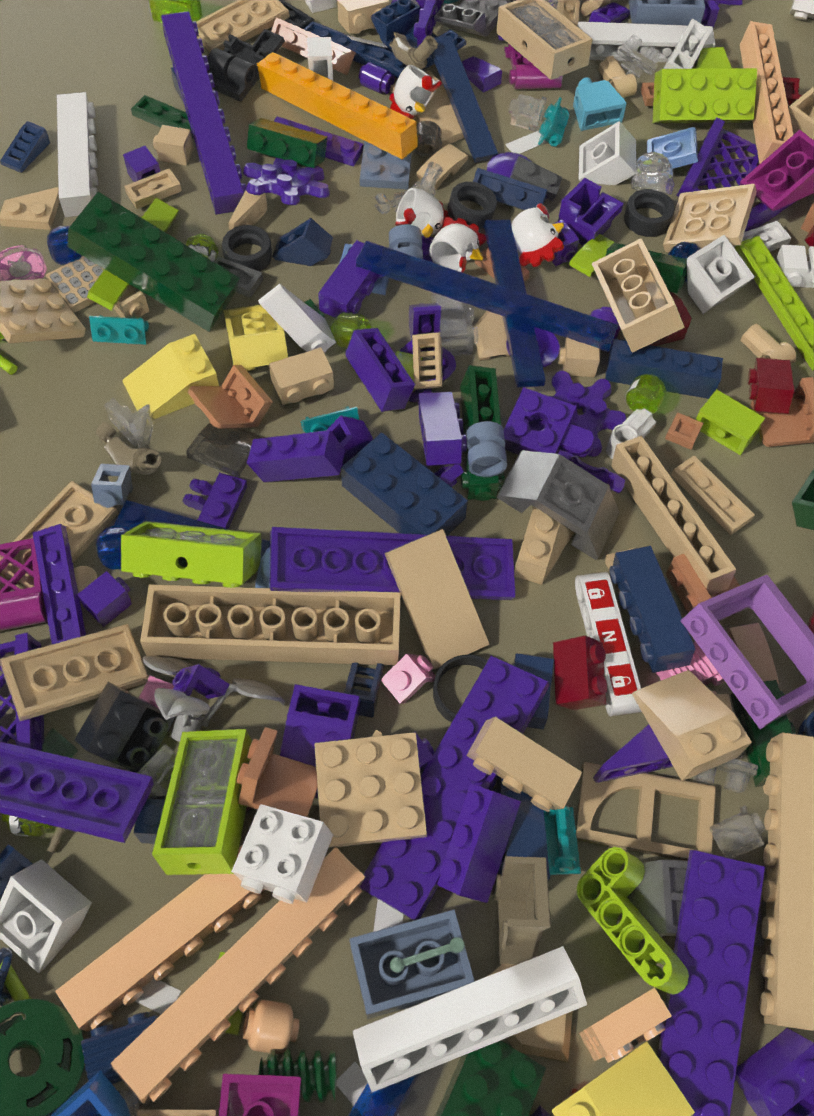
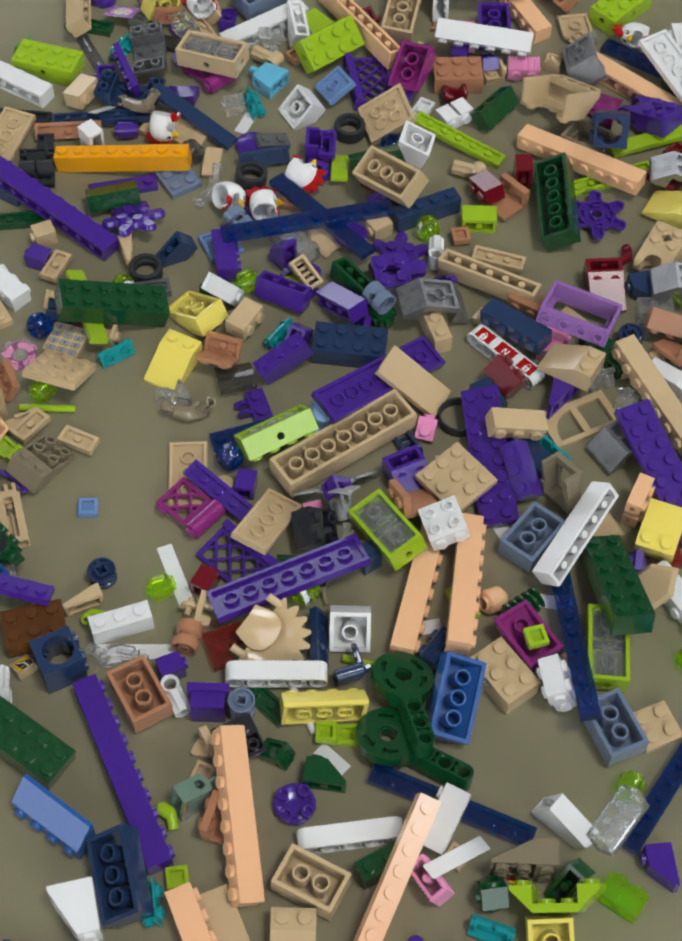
camera: 35 degrees left, 5 degrees down
(111, 493) = (200, 433): sand blue brick -> none
(456, 946) = (547, 512): sand green hinge -> none
(633, 926) = (612, 459): lime beam -> none
(653, 173) = (337, 104): clear piece -> none

